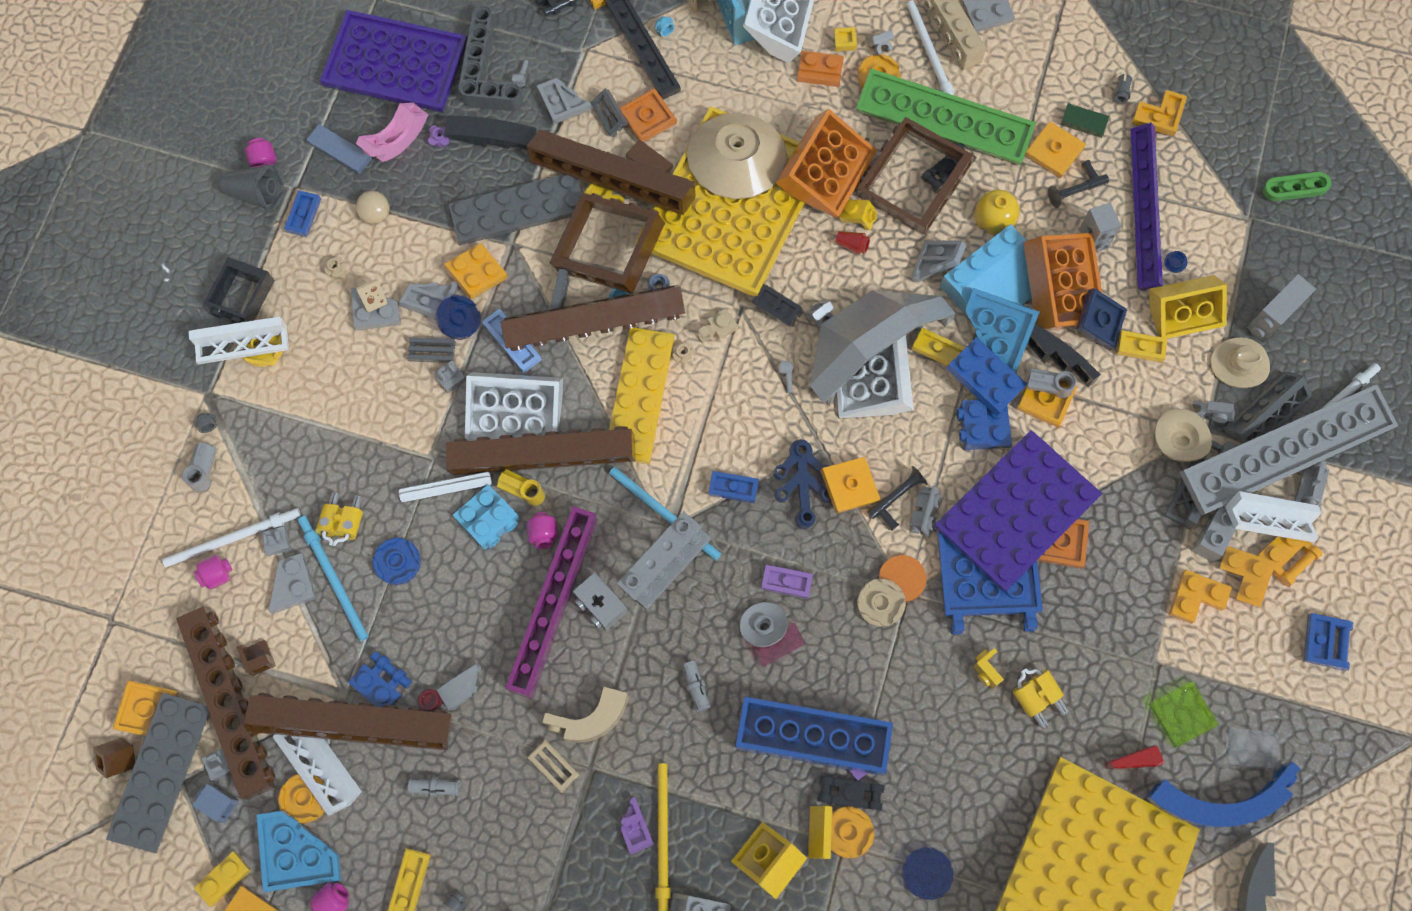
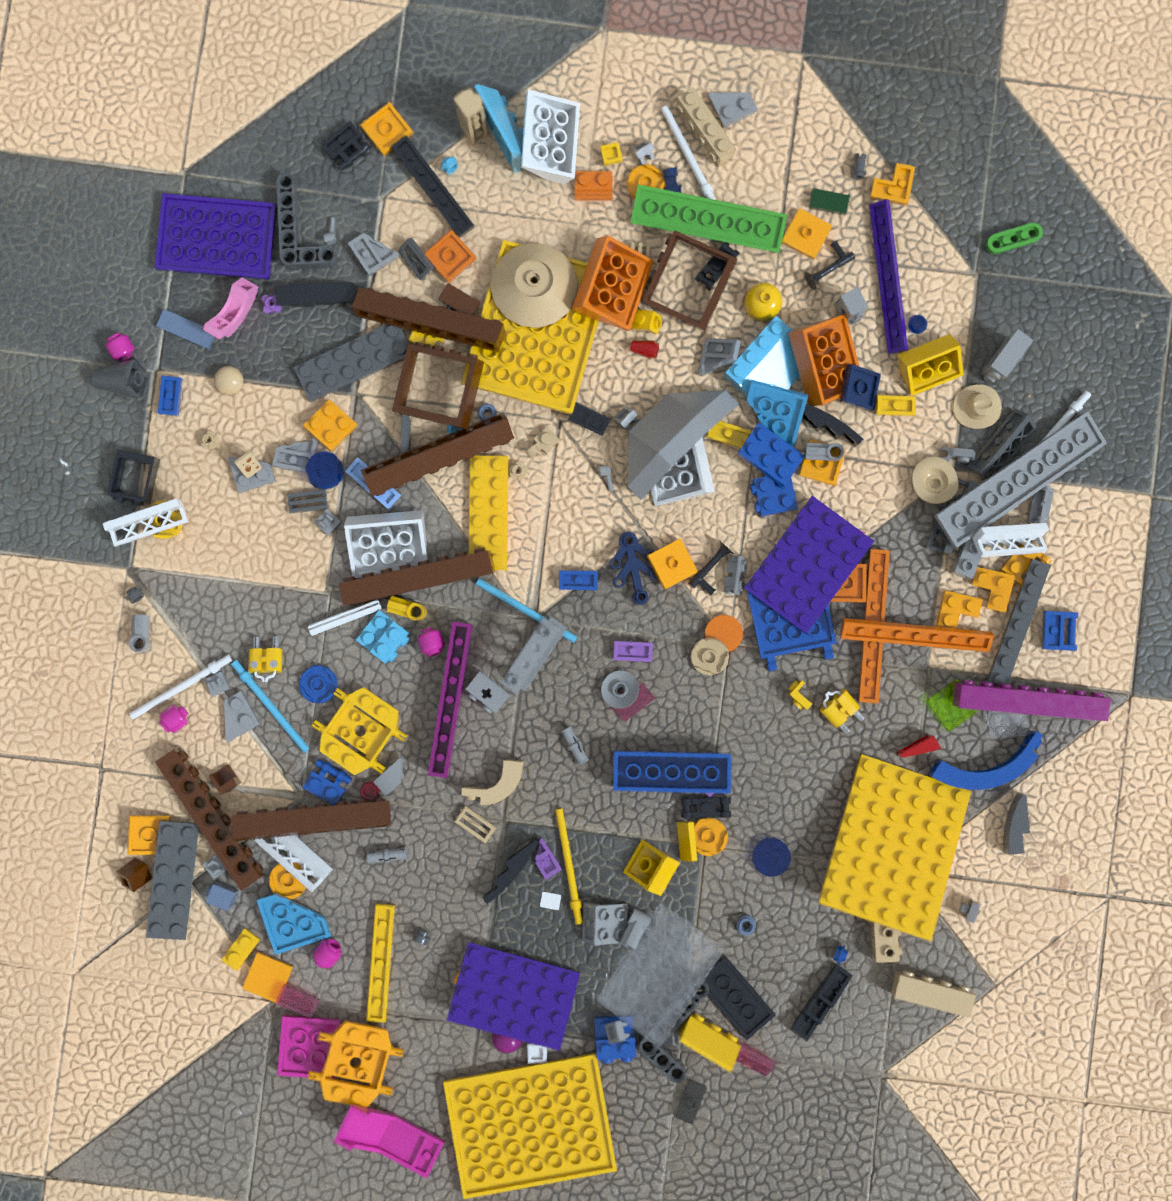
camera: 15 degrees left, 15 degrees up
(417, 614) = (345, 724): none -> yellow piece
(594, 826) = (515, 865): none -> black slope
(631, 883) = (550, 900): none -> white sticker
(908, 68) = (671, 180): none -> dark blue piece
(1091, 600) = (874, 611): none -> orange plate
(1145, 615) = (916, 635): none -> orange plate
(1269, 637) = (1018, 622): none -> dark grey plate
(1288, 722) = (1031, 701): none -> magenta brick

